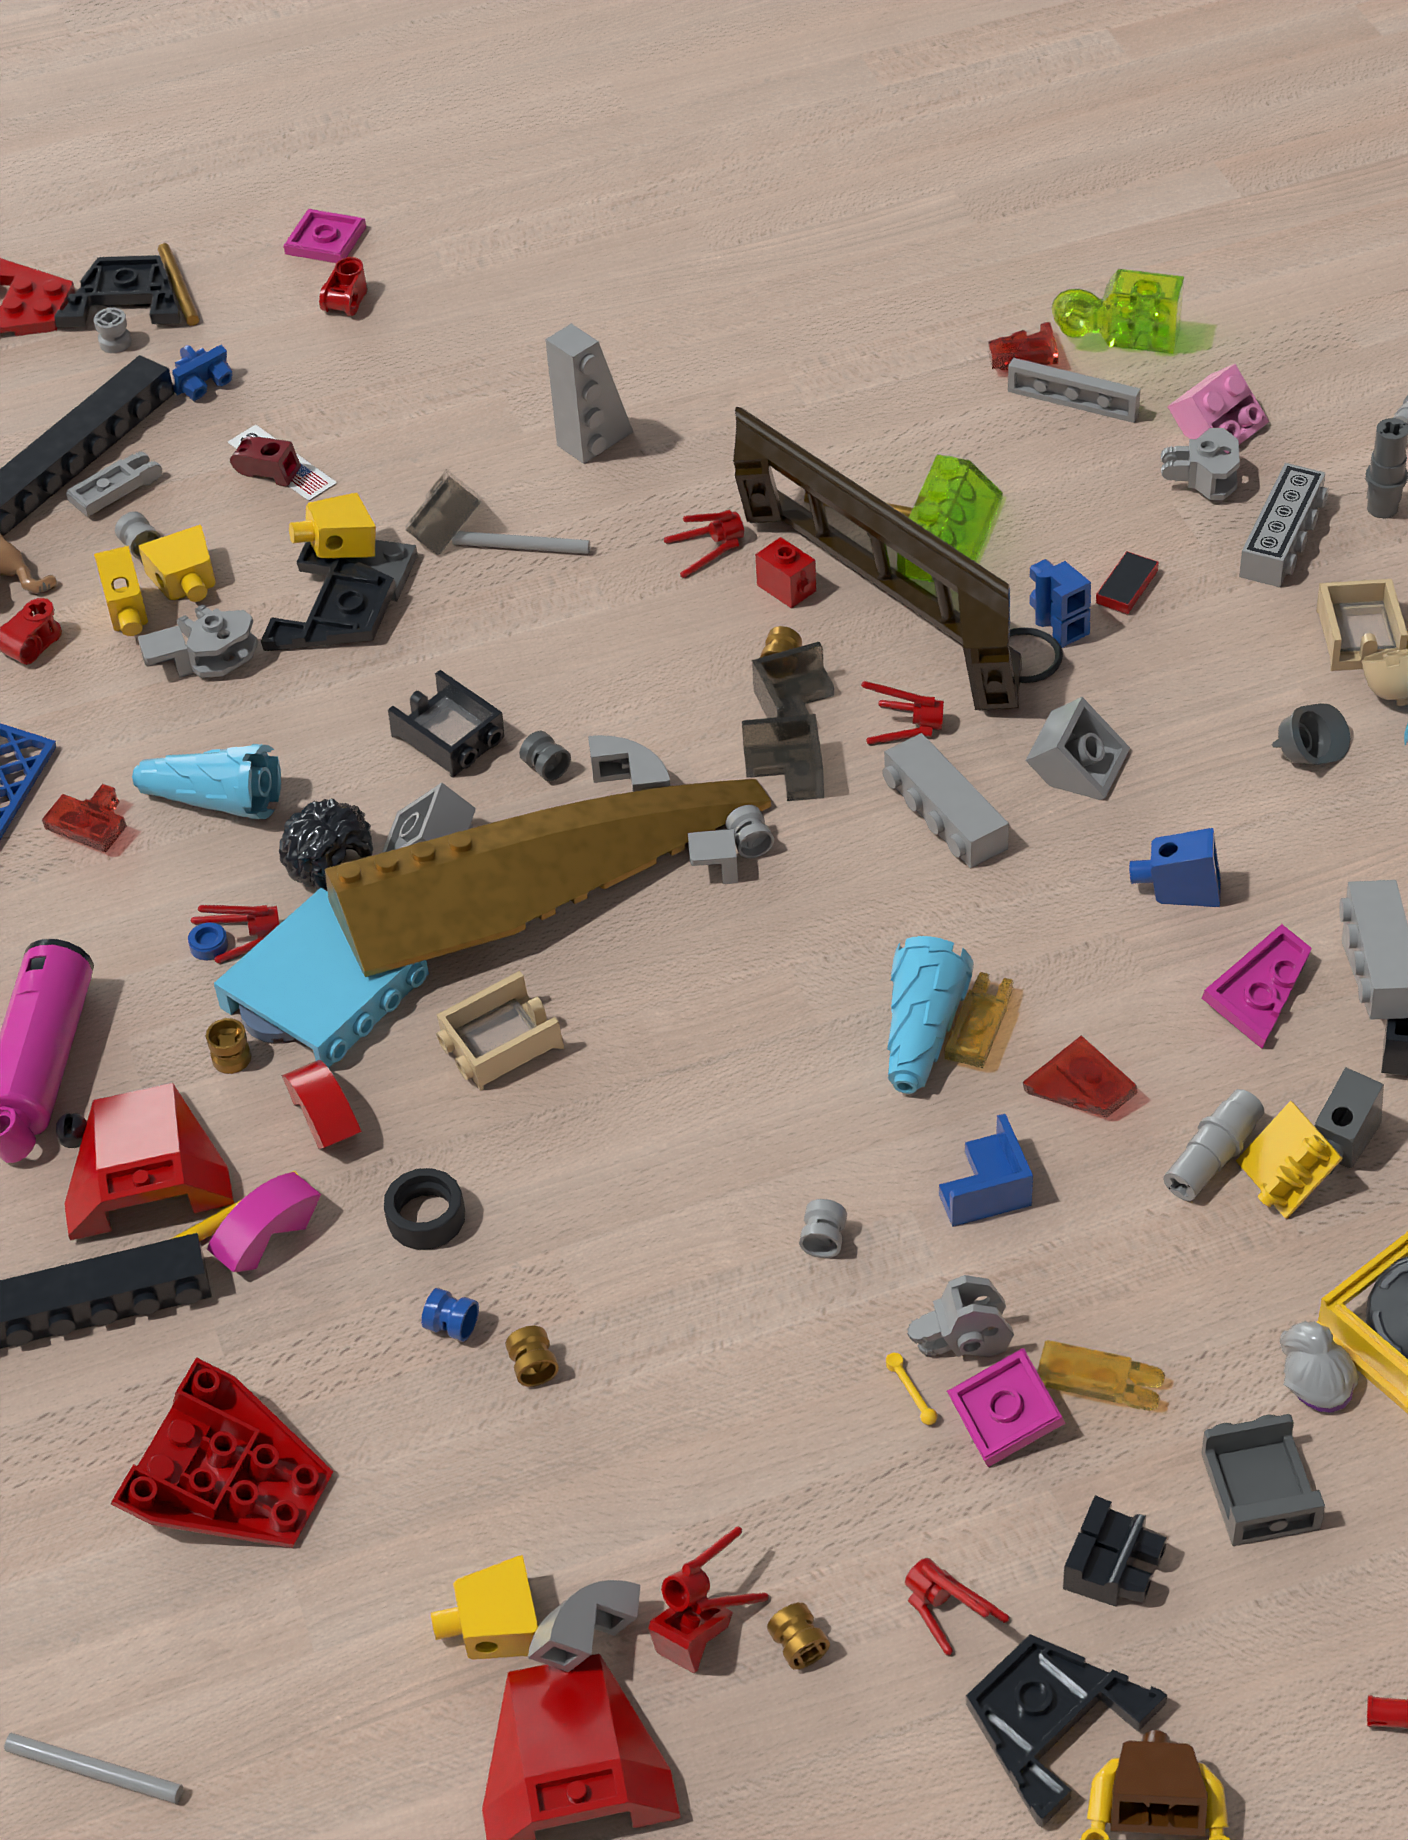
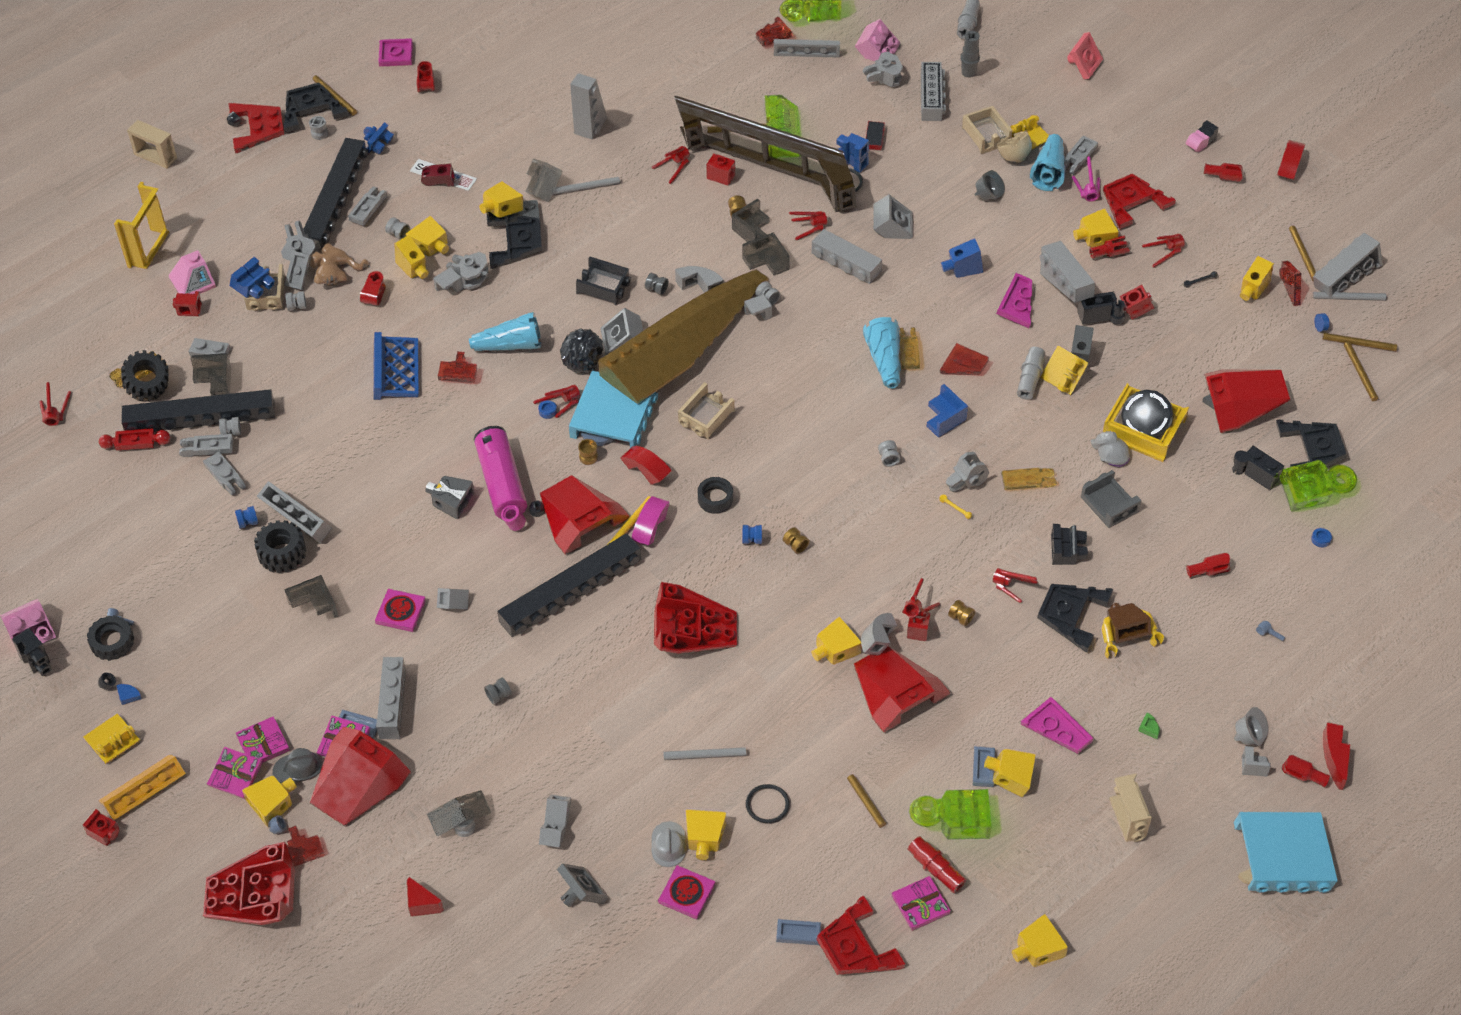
camera: 25 degrees left, 5 degrees up
(1006, 1407) = (998, 501): dark pink tile -> none

